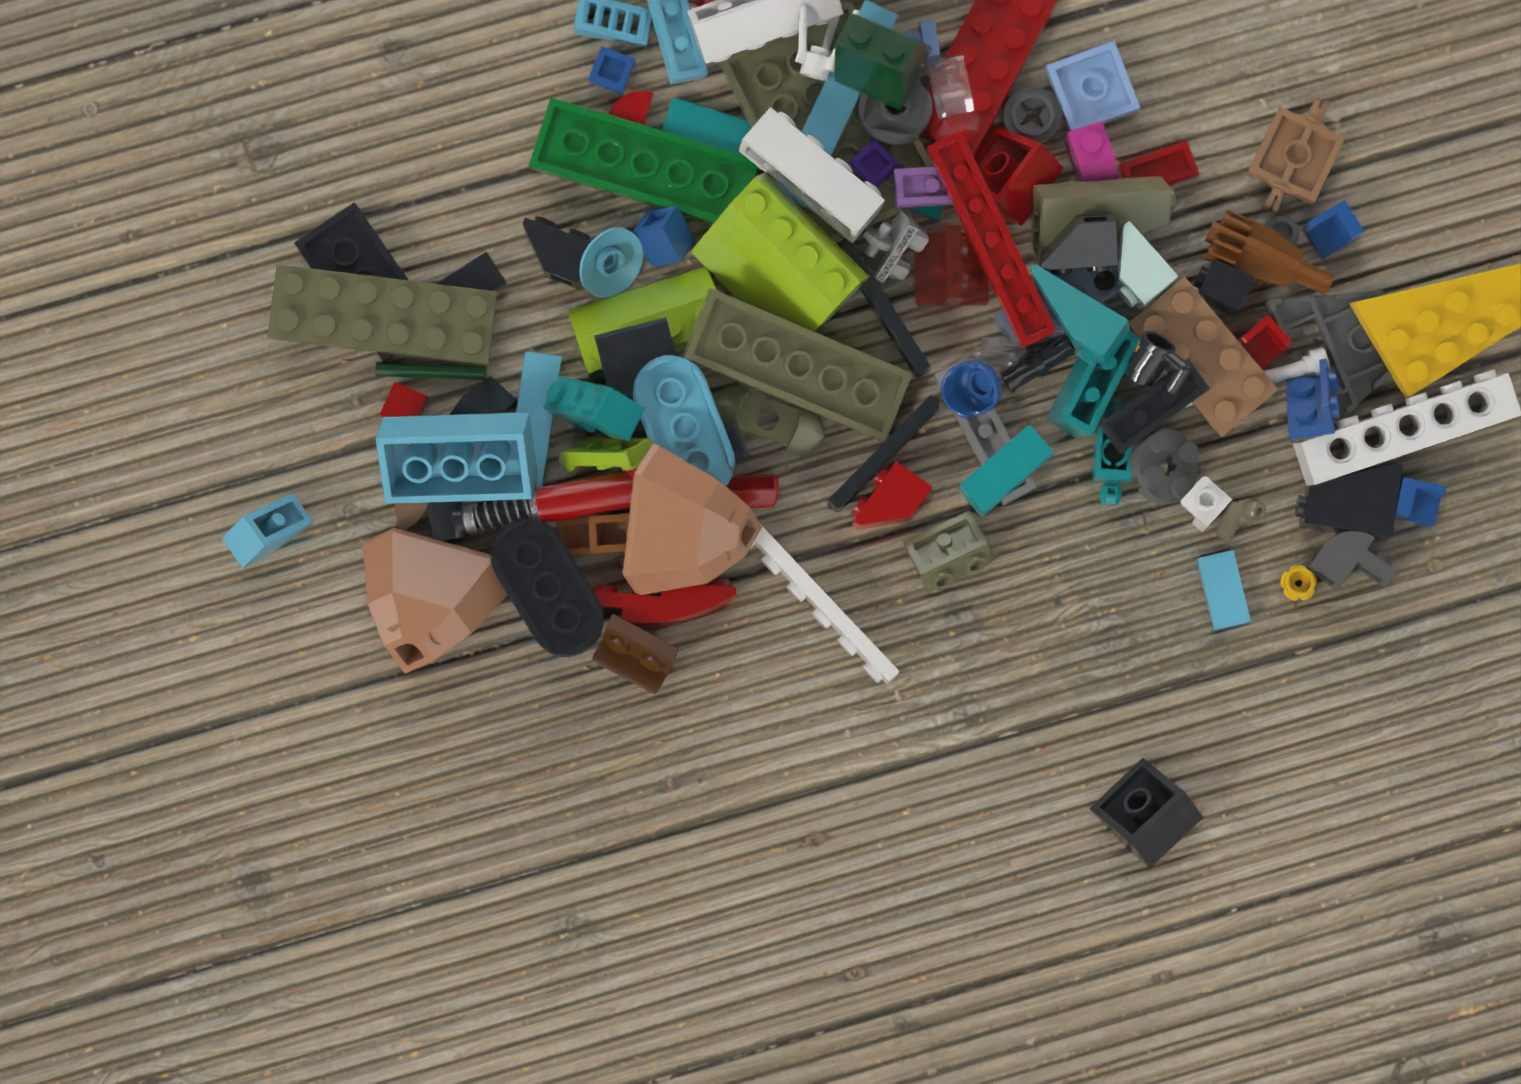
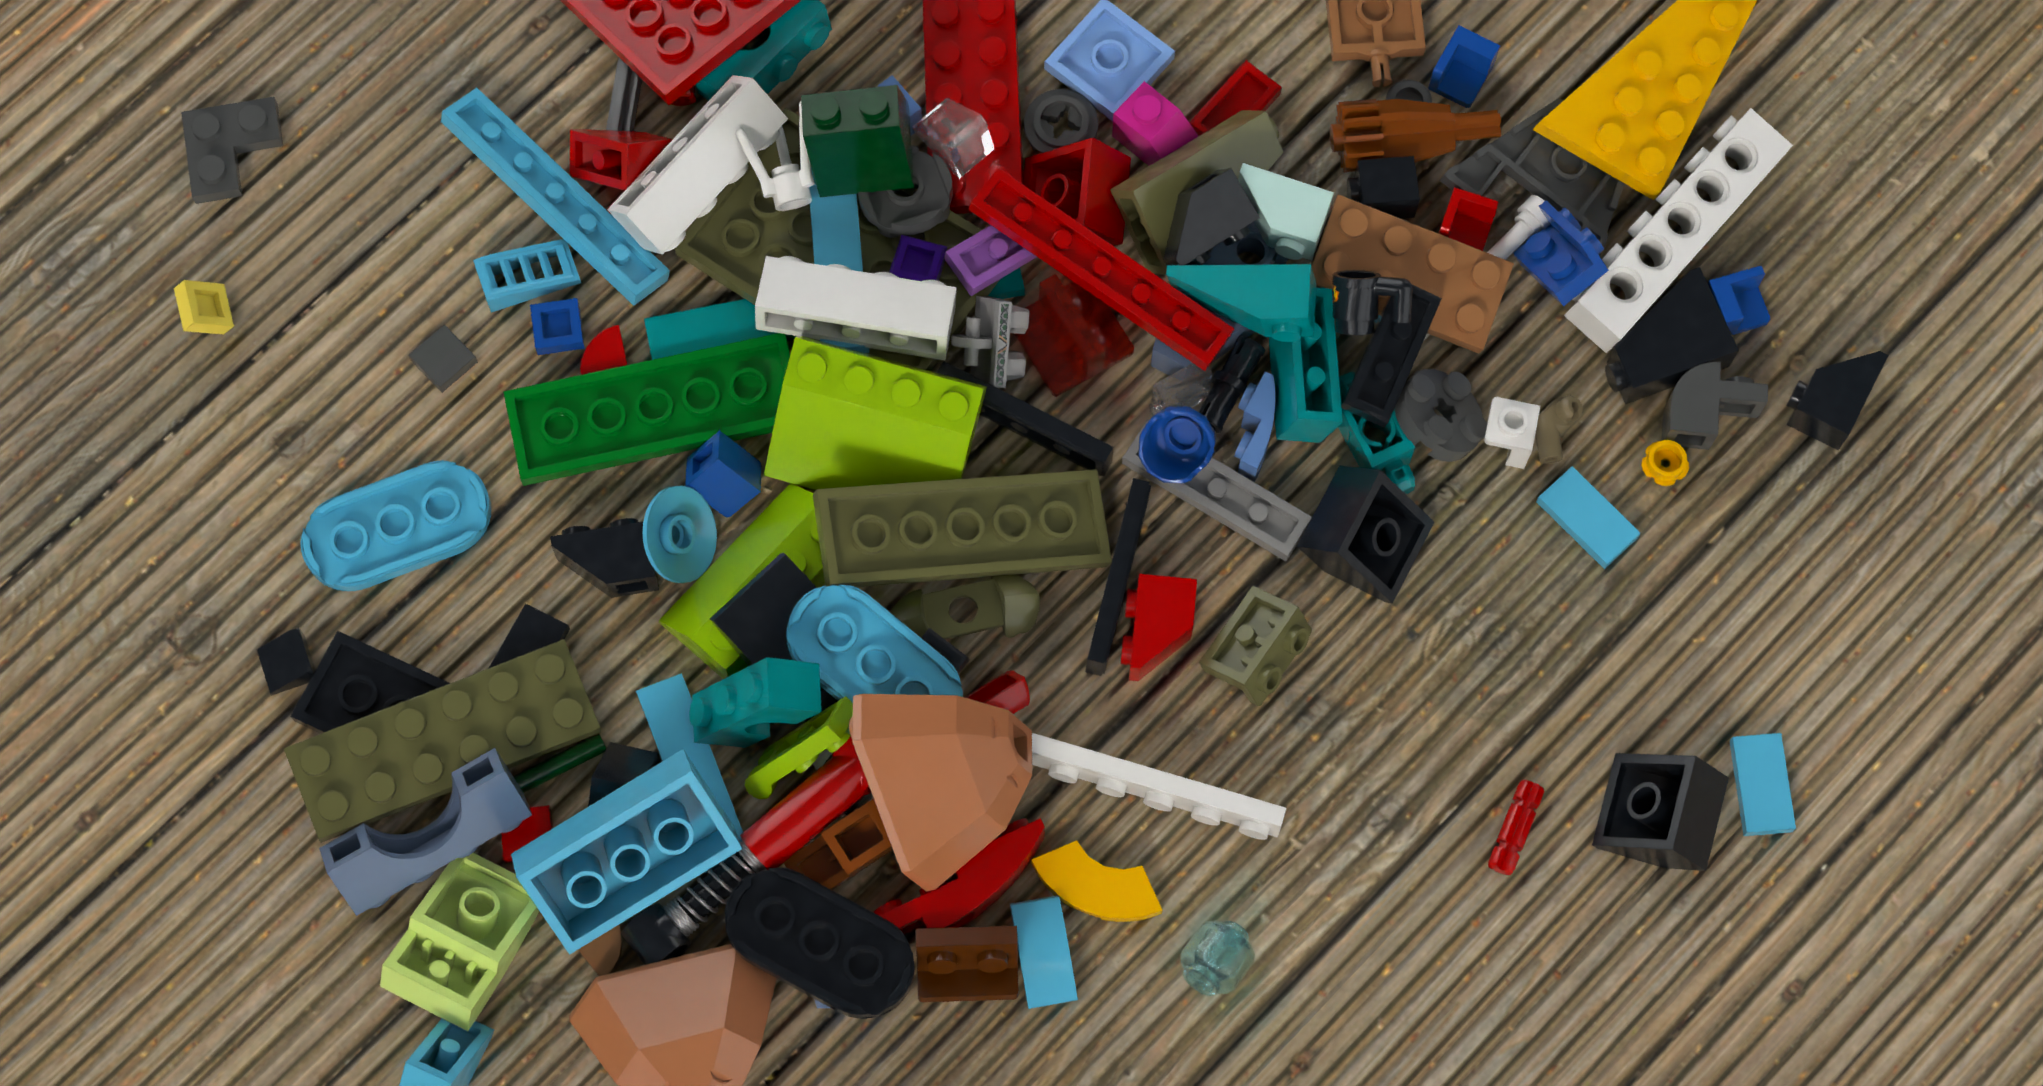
camera: 30 degrees left, 10 degrees down
(295, 374) = (376, 865): none -> sand blue arch
(311, 203) = (286, 661): none -> black slope
(323, 452) = (460, 940): none -> yellowish green slope
(431, 149) = (396, 525): none -> medium azure tile
(524, 49) = (443, 358): none -> dark grey tile
(690, 673) = (1044, 952): none -> medium azure slope
(748, 651) = (1095, 888): none -> yellow tile
(798, 741) = (1217, 957): none -> clear light blue head
(1005, 470) = (1269, 515): teal piece -> none
(1043, 396) = (1258, 418): none -> medium blue slope
(1046, 768) = (1516, 827): none -> red axle
(1066, 517) = (1366, 532): none -> black slope
(1226, 833) = (1762, 784): none -> medium azure tile
(1440, 604) = (1834, 398): none -> black slope

